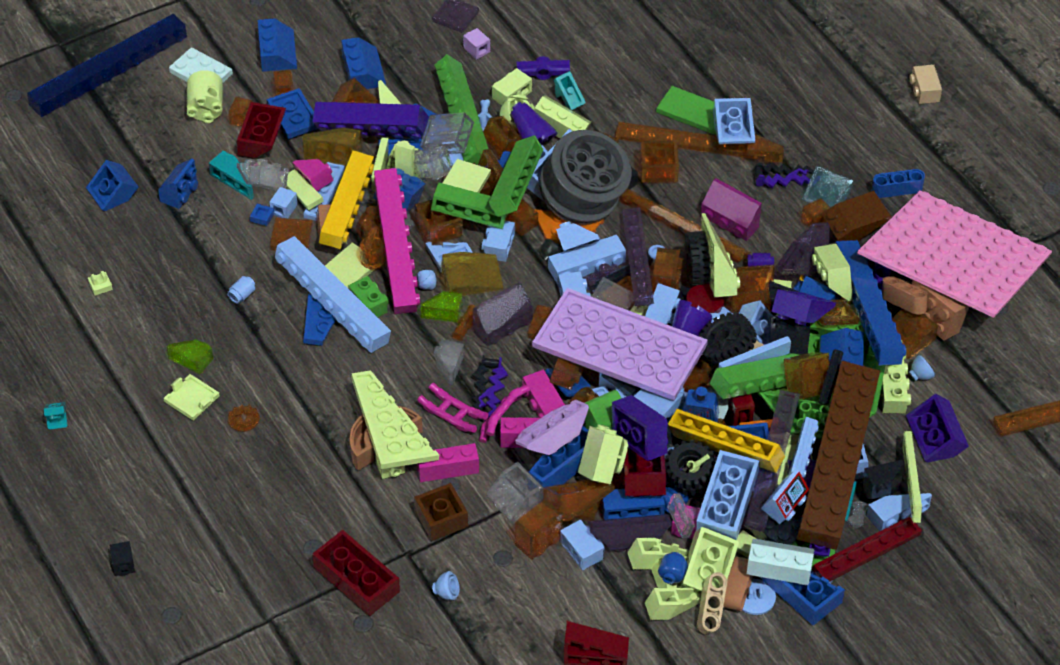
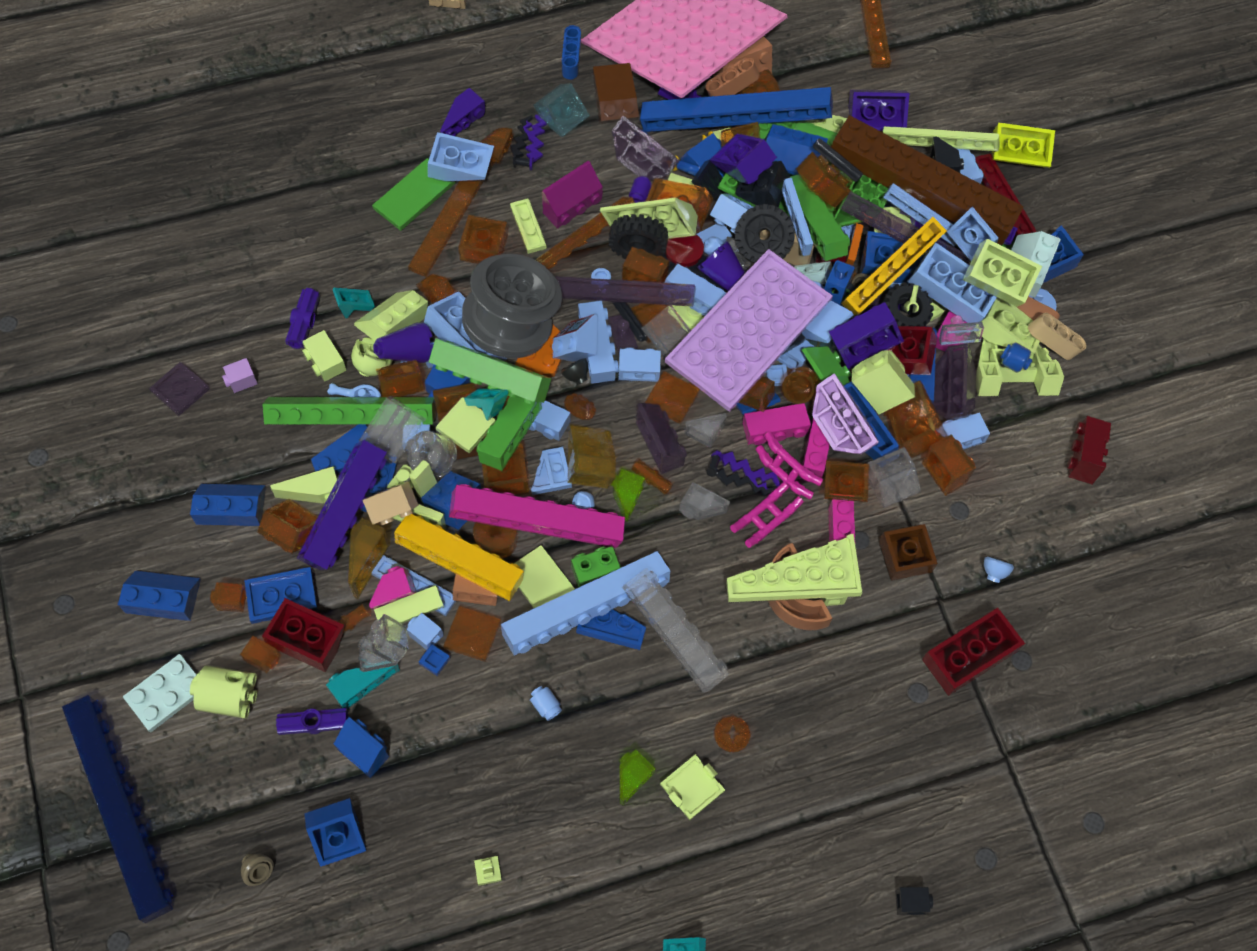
camera: 80 degrees left, 15 degrees up
(75, 148) = (256, 869): none -> dark tan brick
(194, 151) = (297, 722): none -> dark purple piece
(281, 157) = (353, 618): none -> clear orange pin
(319, 352) = (675, 630): none -> clear brick
(372, 250) = (537, 546): clear orange piece -> none
(374, 140) = (390, 503): none -> tan brick
(485, 181) = (489, 399): none -> teal slope
(494, 451) = (846, 481): none -> clear orange slope
(518, 267) = (580, 406): none -> clear orange gear
(523, 353) = (705, 429): none -> clear slope
(689, 194) = (528, 226): none -> yellowish green tile
(739, 513) = (1002, 272): none -> yellowish green brick
(791, 121) = (464, 111): none -> dark purple slope
(813, 212) = (591, 128): clear orange brick -> none
(833, 269) = (686, 124): yellowish green slope -> none
(938, 554) = (1024, 145): none -> neon yellow slope

